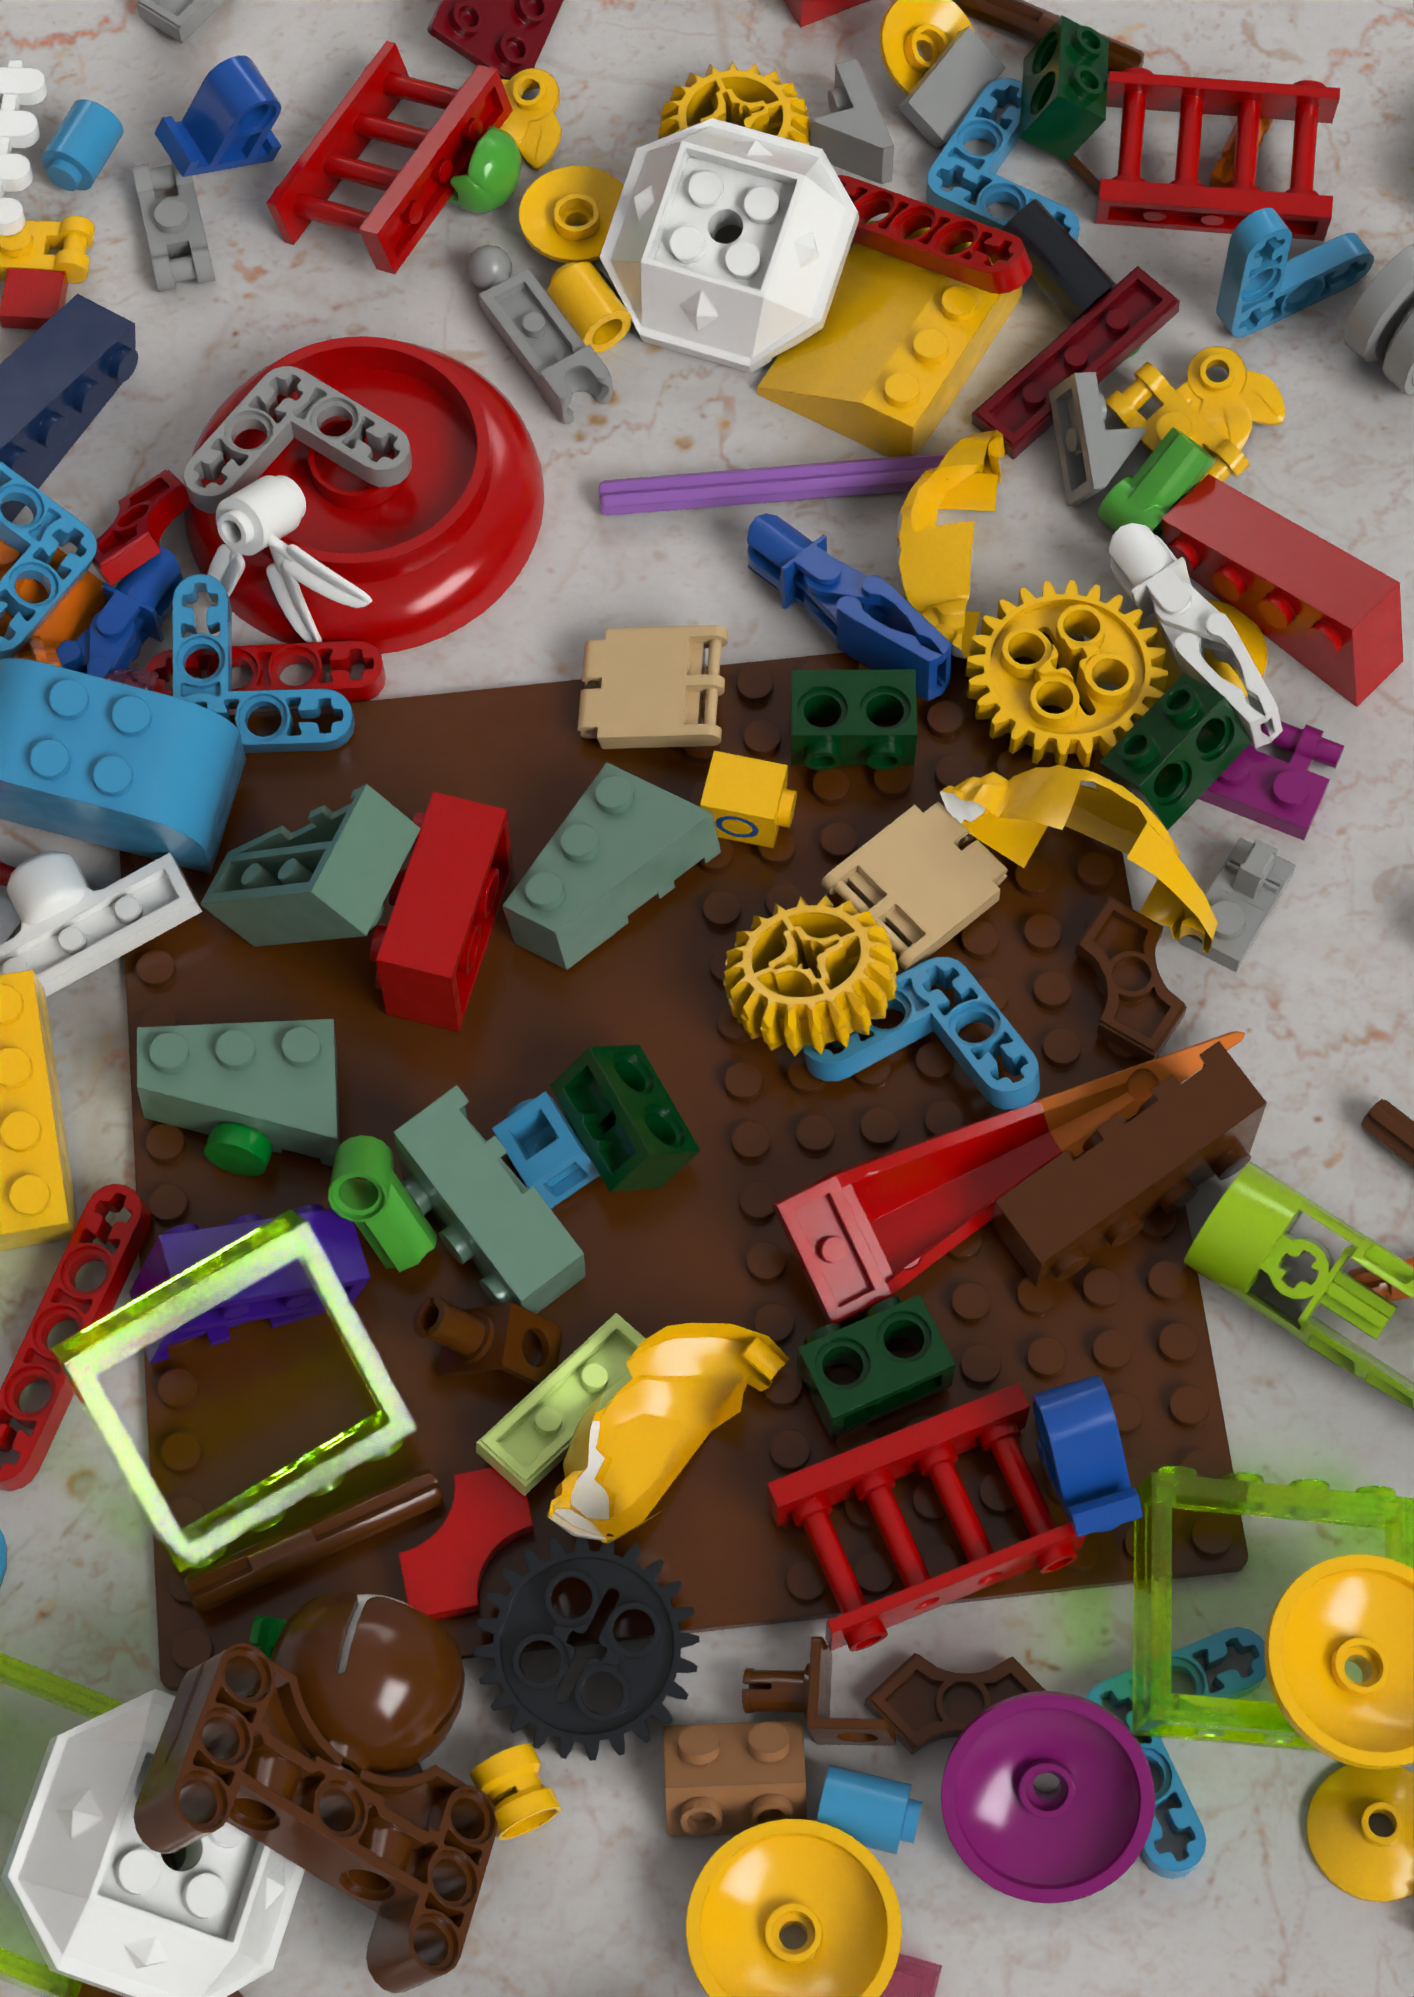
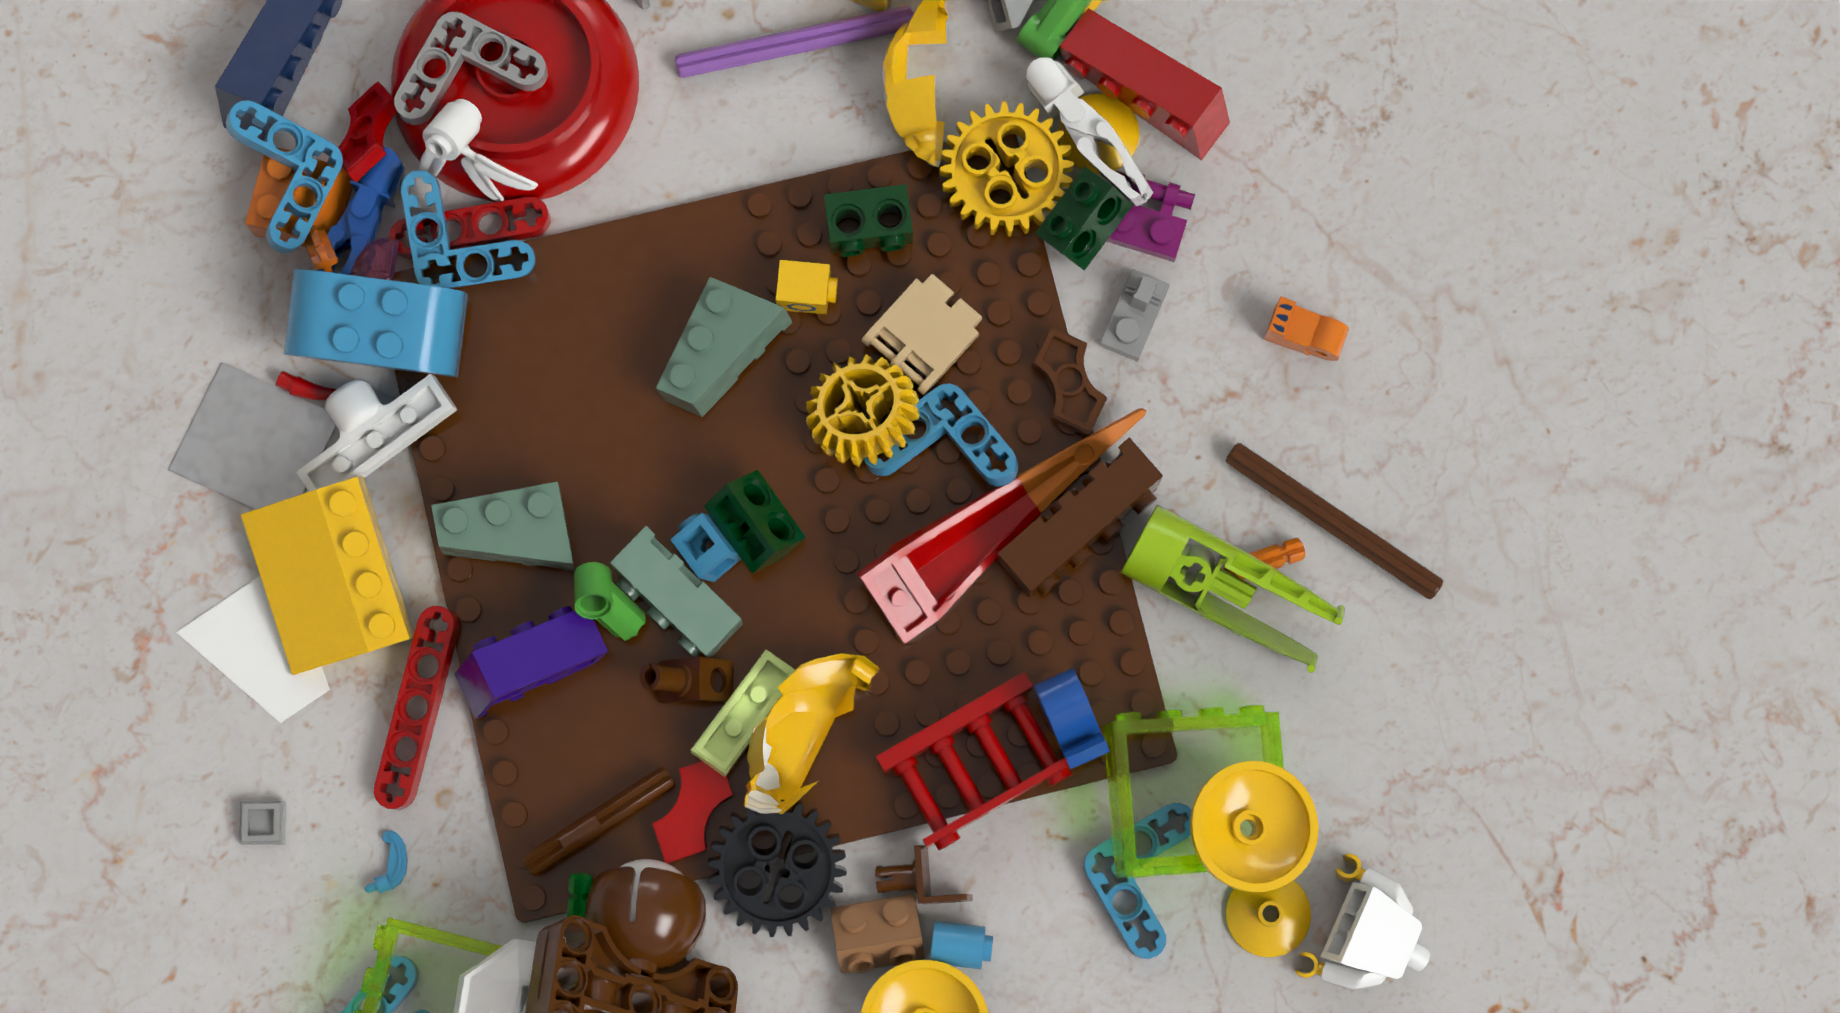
camera: 10 degrees left, 15 degrees up
(179, 1302) = (498, 696): clear neon green window -> none
(238, 1149) = (508, 571): green tile -> none
(316, 880) = (532, 388): sand green wedge -> none
(443, 911) = (616, 394): red brick -> none
(516, 1791) = (745, 961): yellow wheel -> none
(651, 687) = (732, 210): tan plate -> none
(855, 609) = (856, 133): blue arm -> none
(884, 1379) = (939, 675): dark green brick -> none
(939, 1704) = (990, 872): reddish brown tile -> none
(1017, 812) = (1000, 273): yellow animal -> none
(1054, 1841) = (1070, 947): magenta dish -> none

